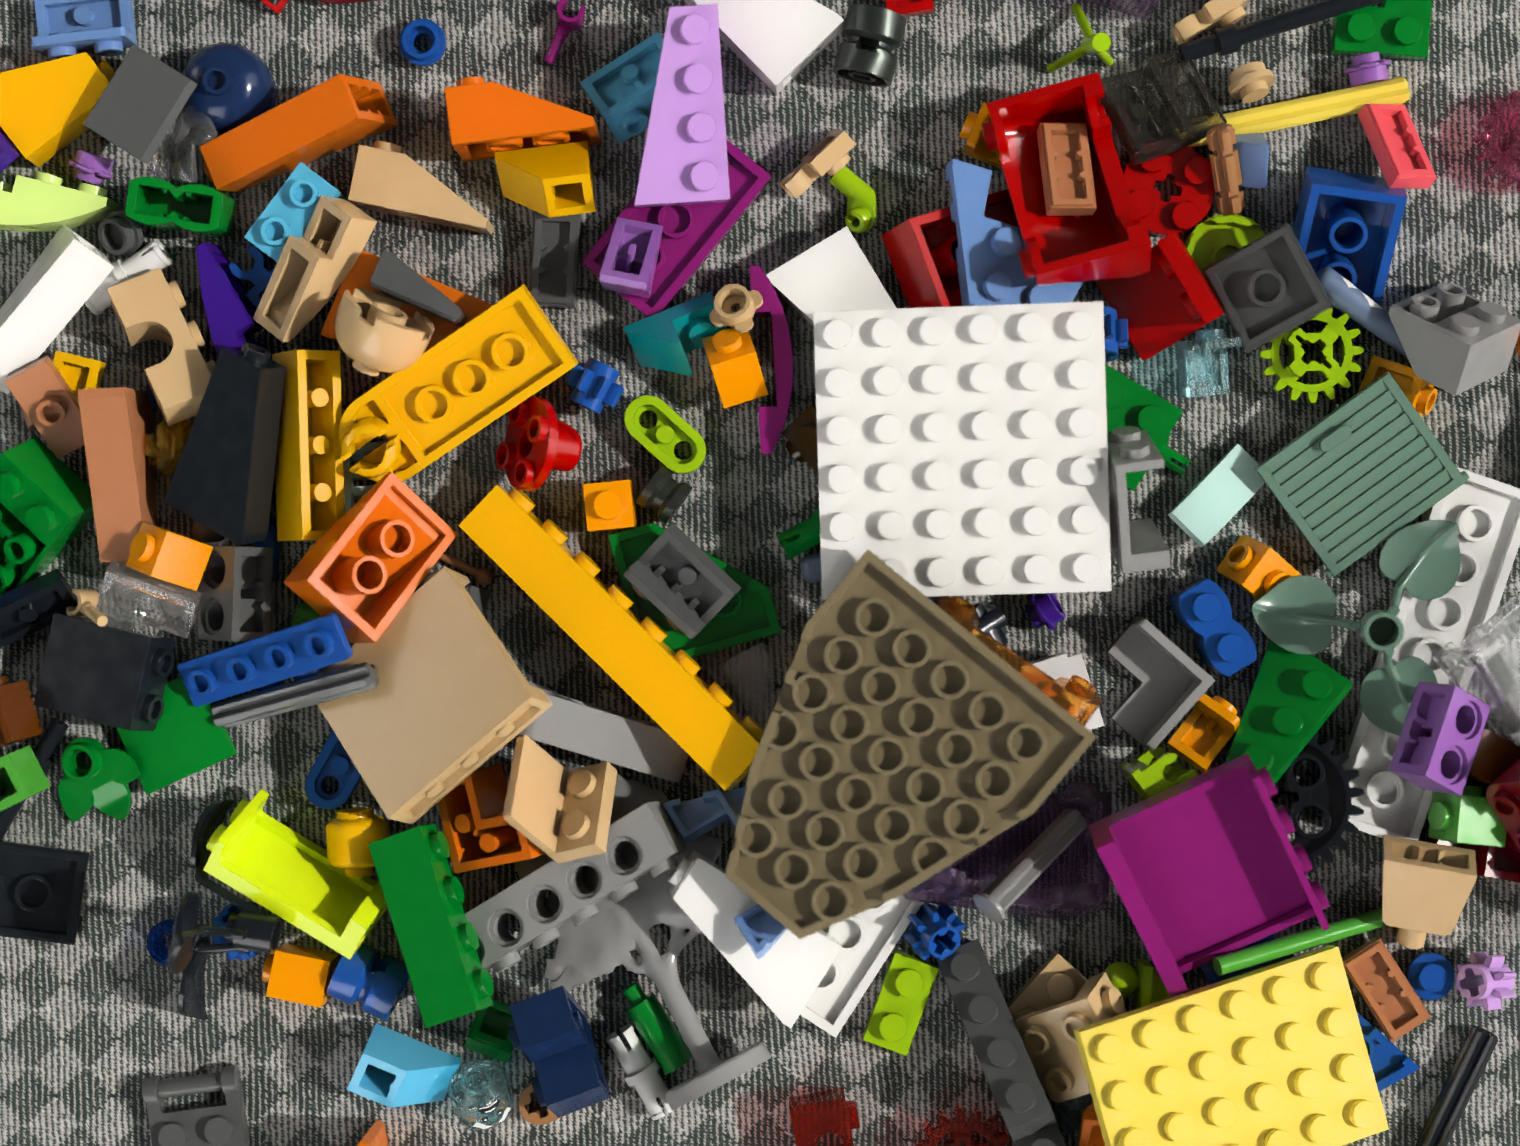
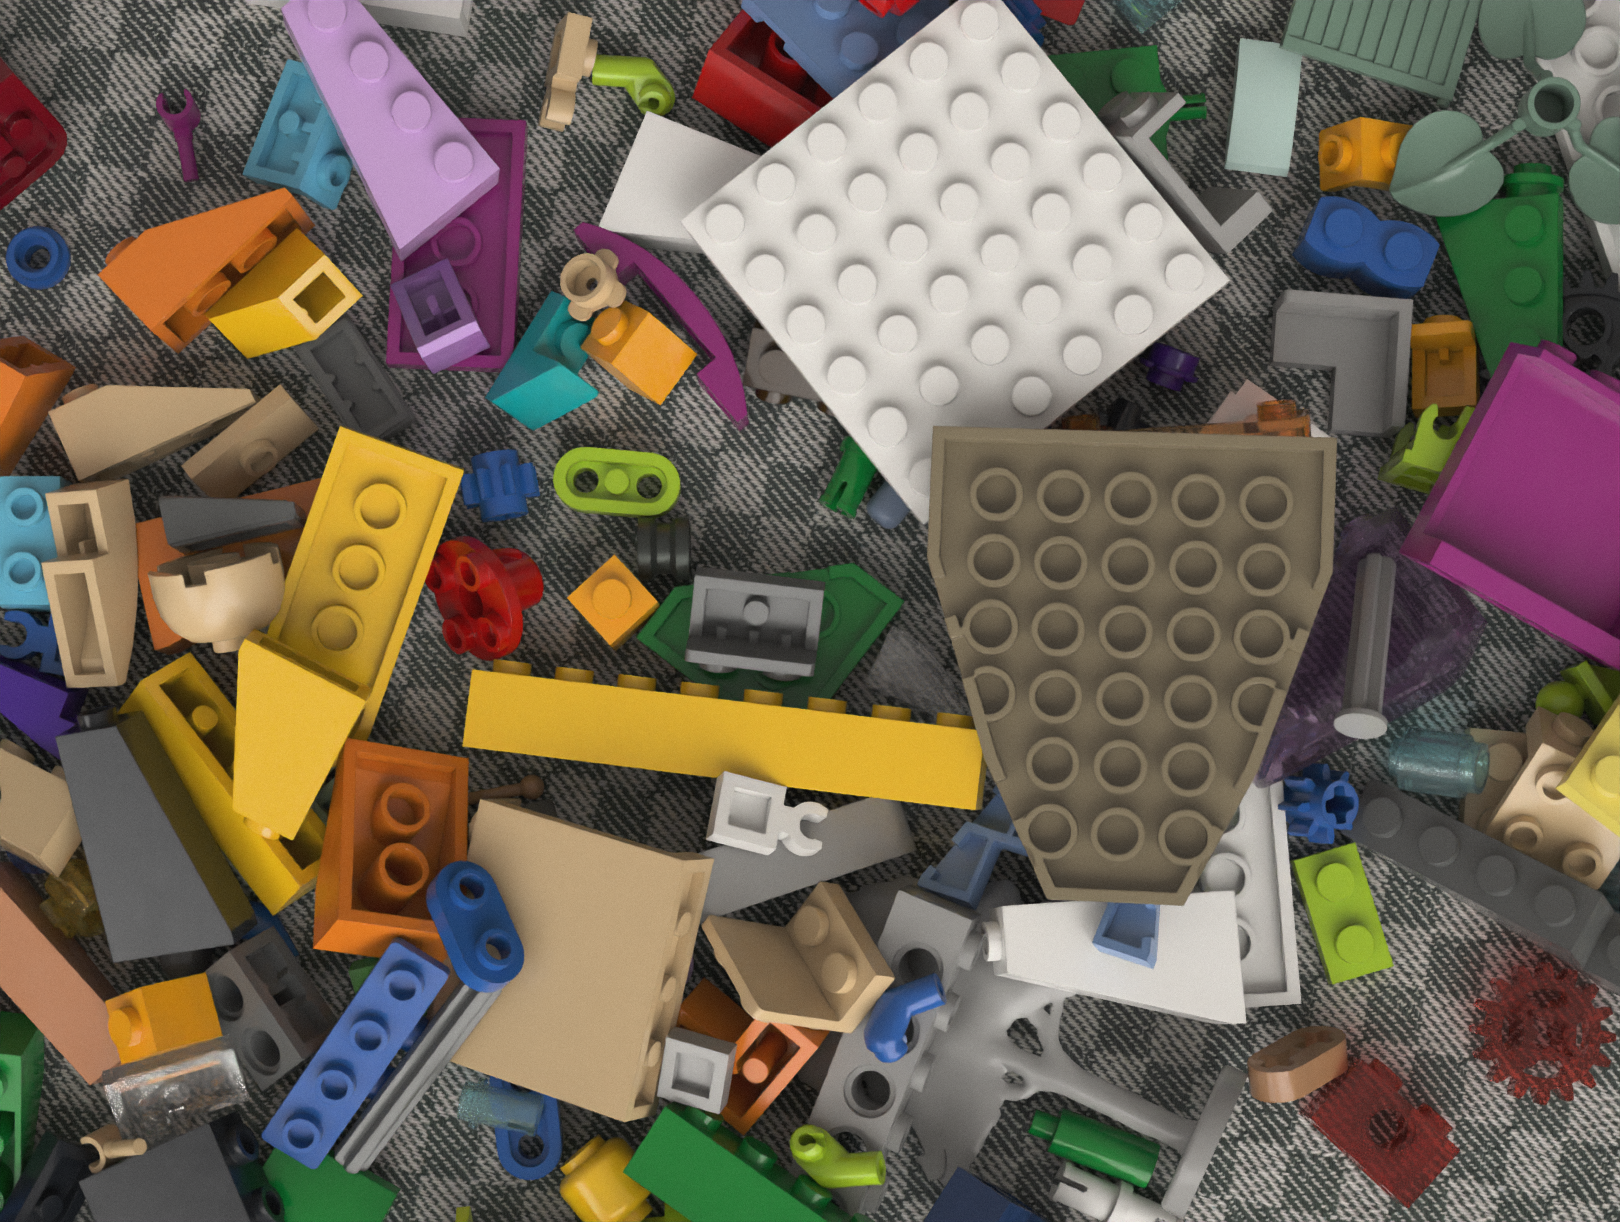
camera: 35 degrees left, 5 degrees down
(326, 751) = (499, 1108): none -> clear light blue pin
(359, 446) = (287, 732): none -> yellow slope
(383, 638) = (472, 923): none -> blue plate
(453, 818) = (696, 1070): none -> light grey plate
(464, 252) = (250, 446): none -> tan plate
(491, 928) = (831, 1163): none -> lime arm
(590, 870) = (892, 1013): none -> blue arm
(595, 697) = (754, 816): none -> white plate
(806, 1071) = (1297, 1064): none -> medium nougat beam
(1022, 960) = (1439, 762): none -> clear light blue brick
(1343, 661) = (1531, 180): none -> green plate

